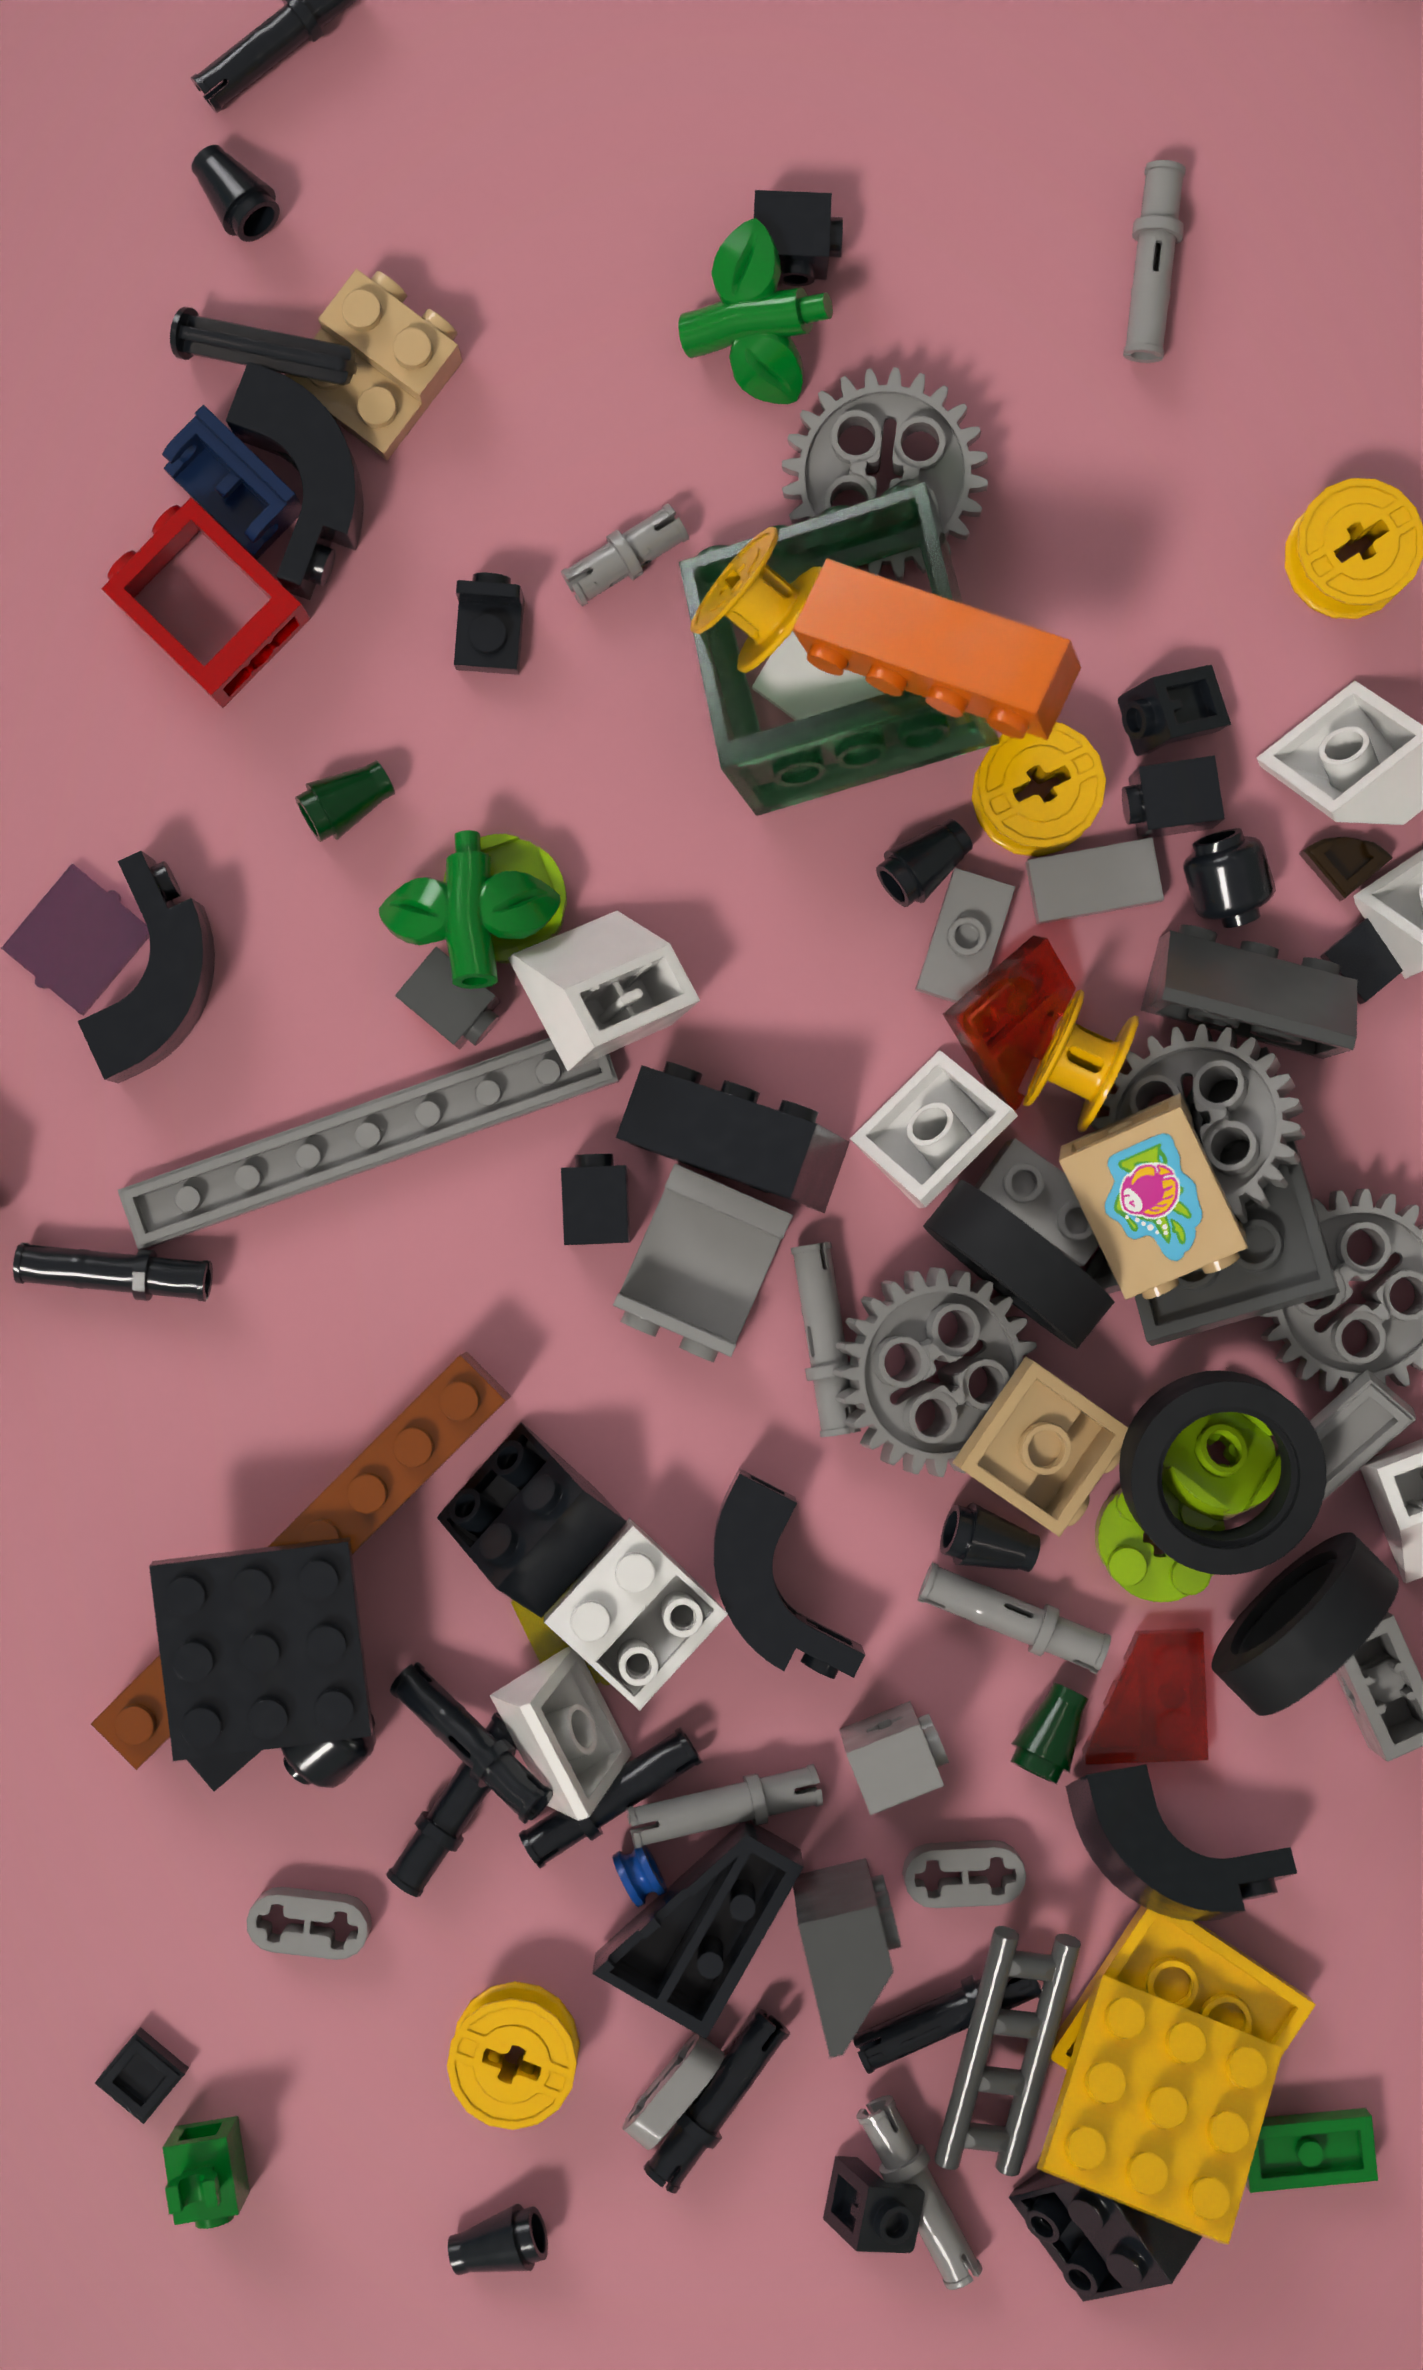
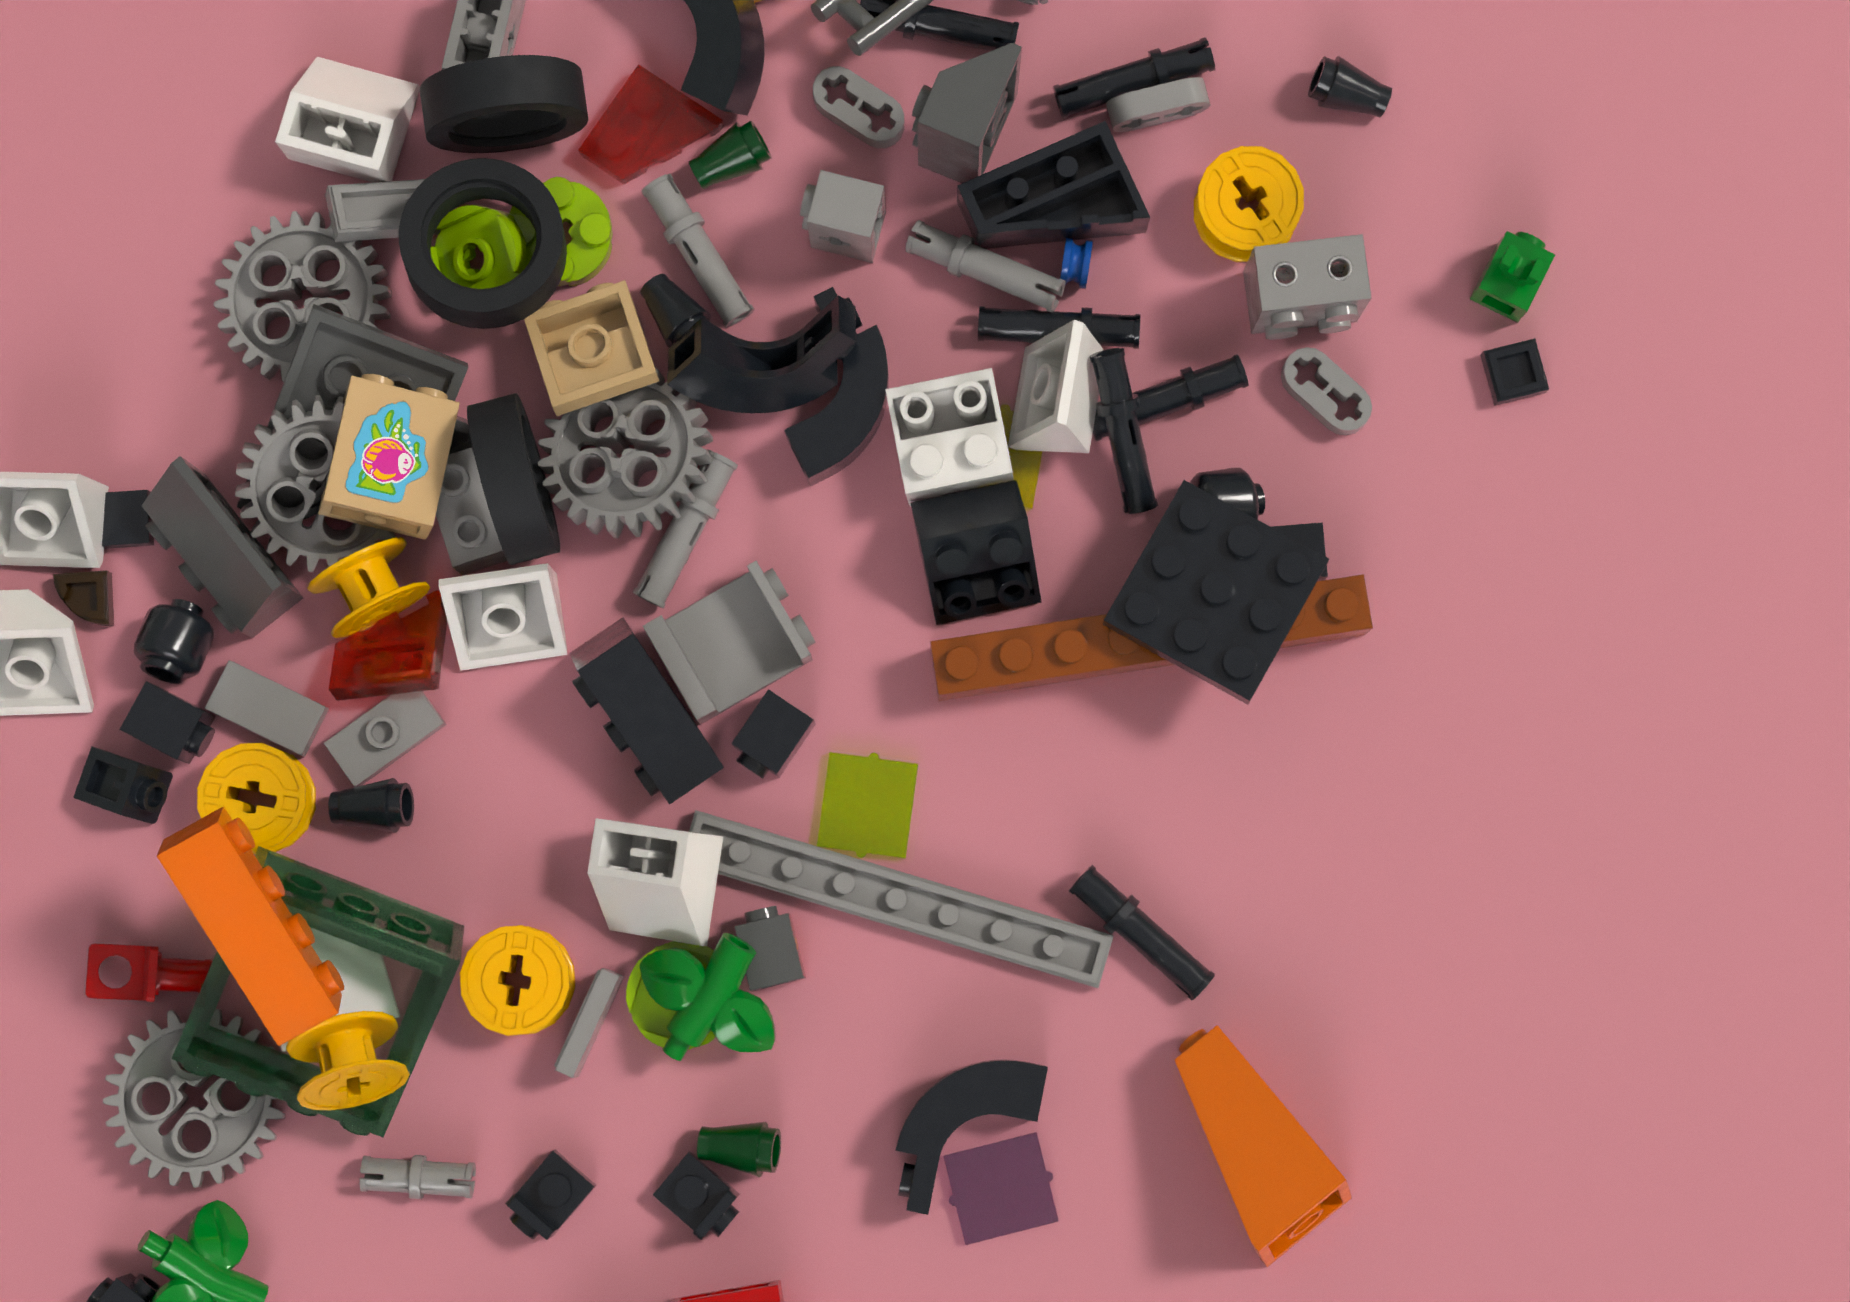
camera: 140 degrees left, 5 degrees down
(349, 725) = (698, 1197): none -> black bracket
(393, 2017) = (1307, 286): none -> light grey piece
(461, 1204) = (867, 805): none -> clear neon green piece
(570, 809) = (588, 1022): none -> light grey tile
(680, 766) = (492, 999): none -> yellow piece
(855, 1542) = (762, 375): none -> black arch
(1015, 555) = (148, 975): none -> red bracket

